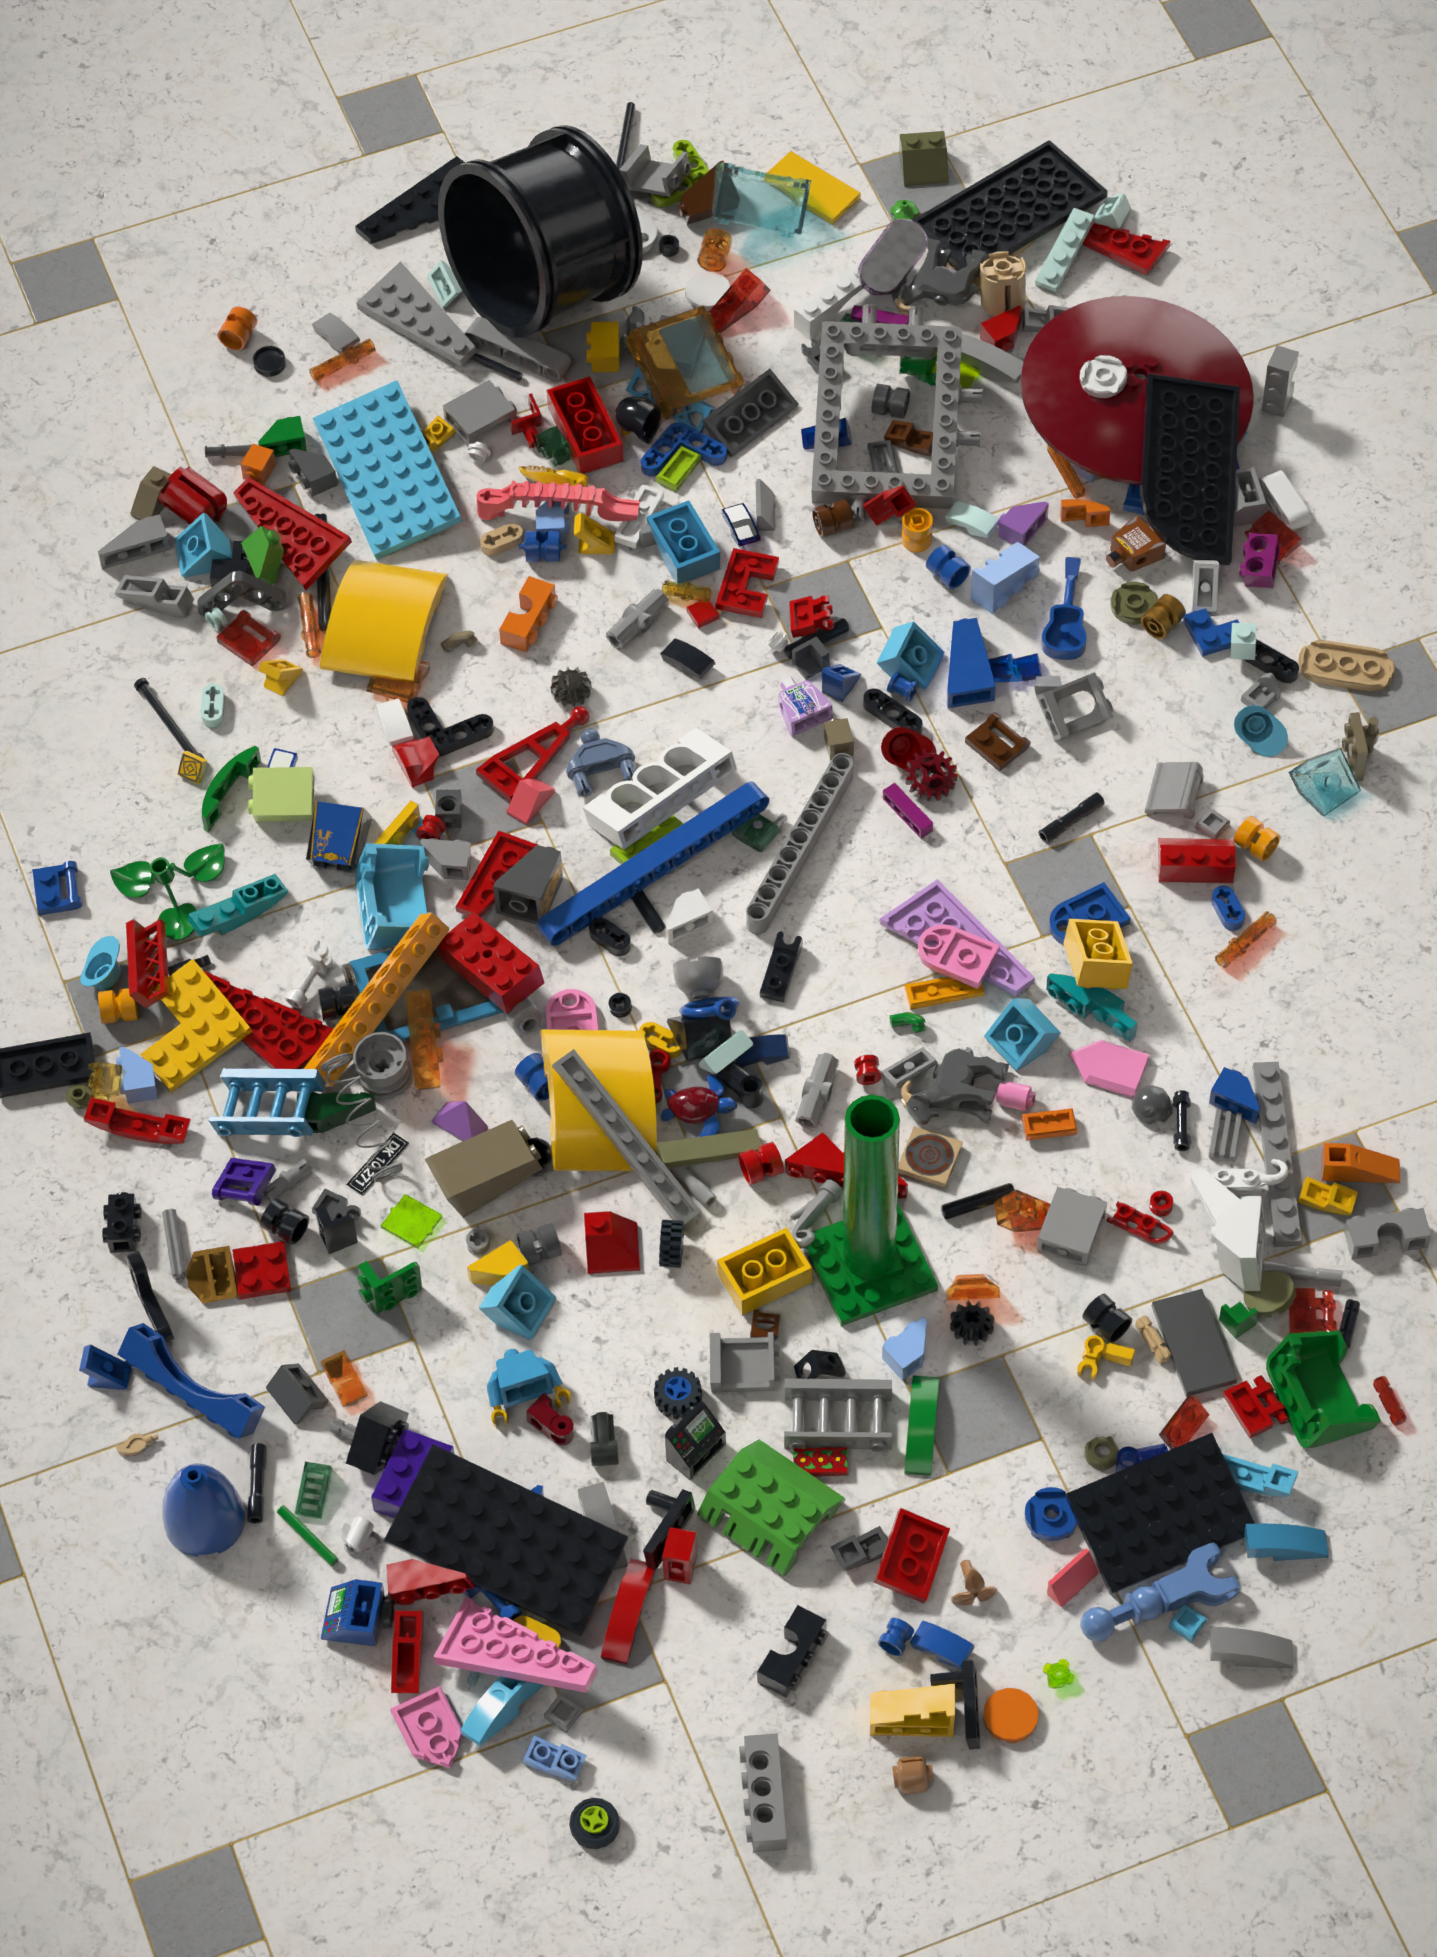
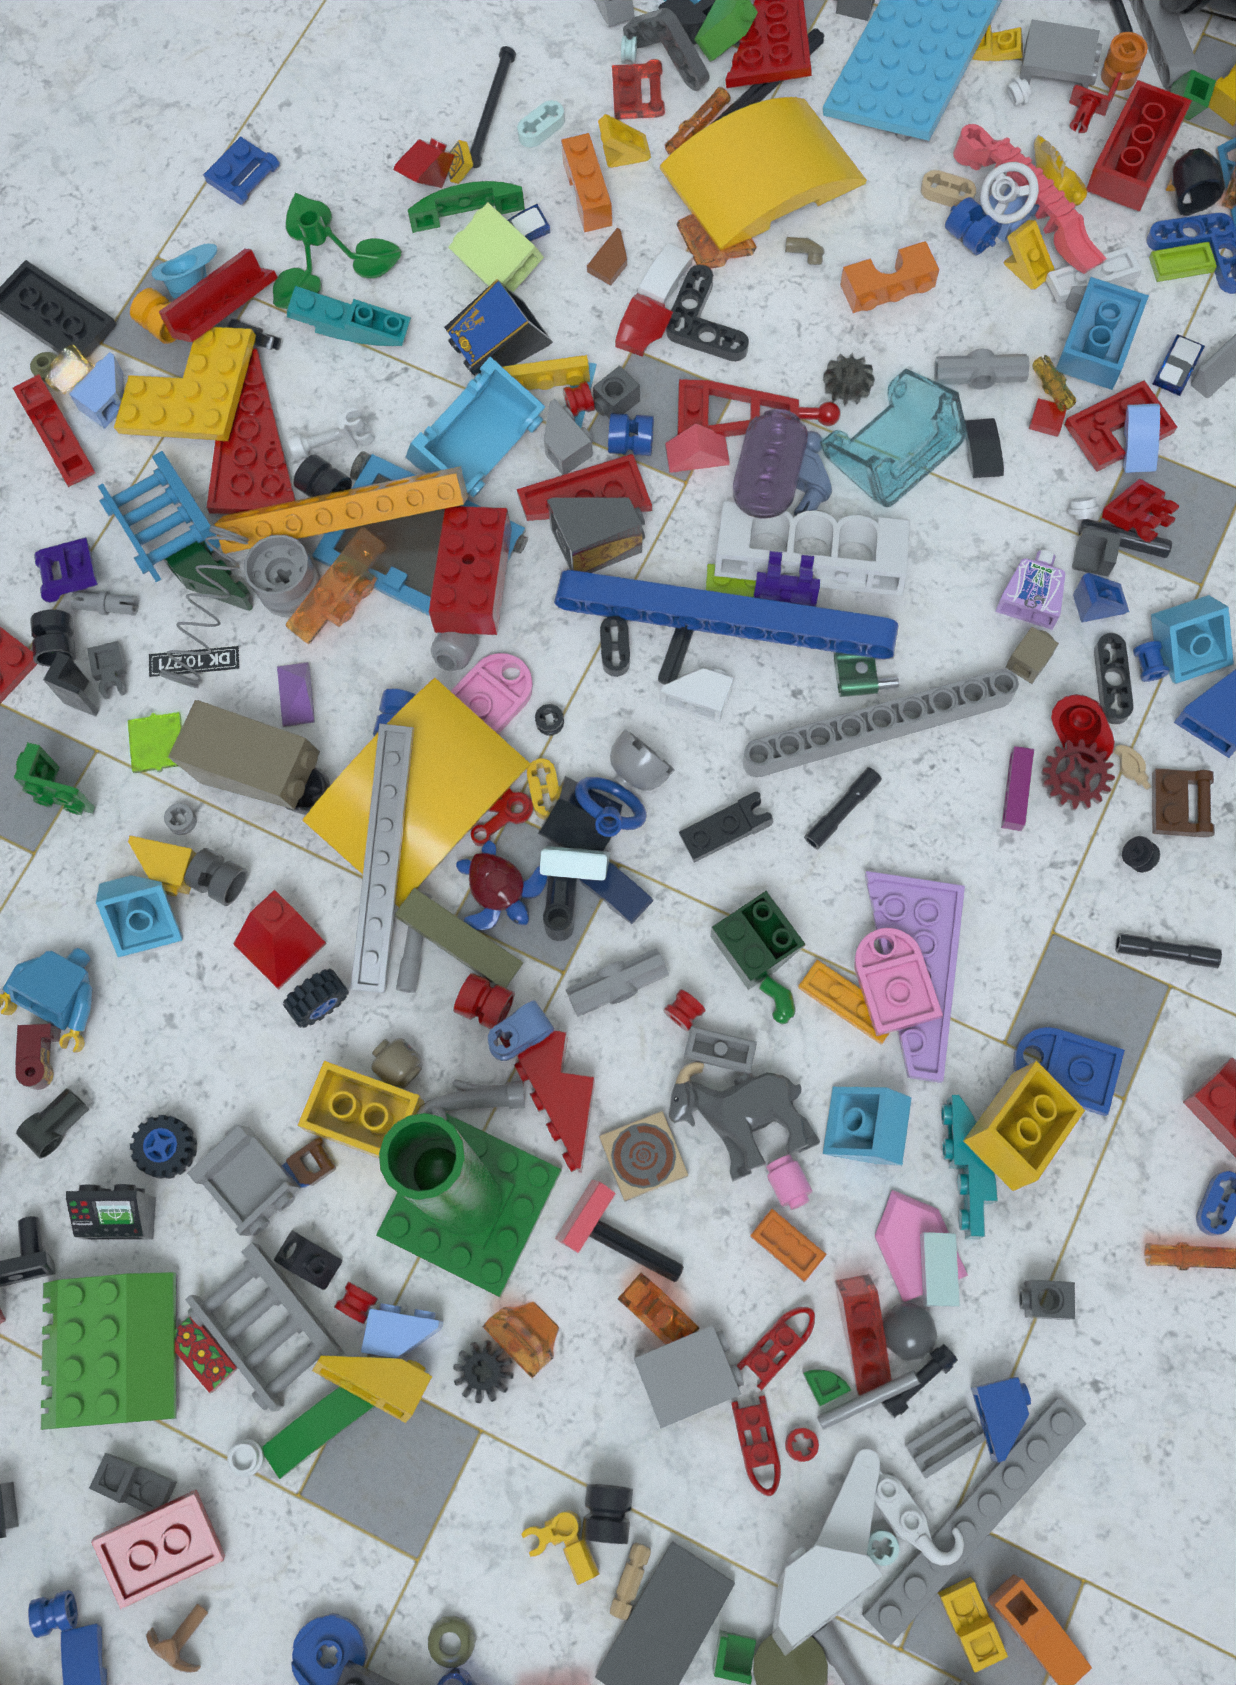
camera: 50 degrees right, 15 degrees up
(179, 780) = (426, 163): none -> red slope
(303, 717) = (588, 182): none -> orange arch
(350, 742) = (610, 259): none -> dark orange tile
(483, 822) = (619, 434): none -> blue wheel
(520, 383) = (1124, 56): none -> orange wheel
(553, 446) = (1090, 141): clear green brick -> none
(562, 497) = (1001, 184): none -> white piece
(581, 368) = (1196, 88): none -> green brick
(586, 764) = (770, 464): none -> clear purple tile
(638, 691) = (901, 442): none -> clear light blue windscreen
(669, 819) = (787, 588): none -> dark purple plate
(748, 1232) = (396, 1062): none -> dark tan head
(766, 575) = (1142, 438): none -> light blue slope
(800, 1151) = (523, 1029): none -> medium blue piece
(828, 888) = (856, 793): none -> black piece
(864, 1002) = (756, 939): none -> dark green slope
(870, 1358) = (355, 1302): none -> red wheel
(902, 1480) = (245, 1458): none -> white plate
(926, 1373) = (383, 1382): none -> yellow slope
(934, 1207) = (585, 1215): none -> coral slope
(952, 747) = (1132, 765): none -> tan piece
(1006, 783) = (1141, 854): none -> black wheel
(1098, 1166) = (784, 1339): none -> red piece
(1131, 1124) = (863, 1332): none -> clear red slope
(1132, 1061) = (939, 1269): none -> light aqua slope
(1141, 1168) = (825, 1385): none -> green tile
(1168, 1149) = (868, 1399): none -> light grey bar
(1203, 1017) = (1063, 1297): none -> dark grey brick

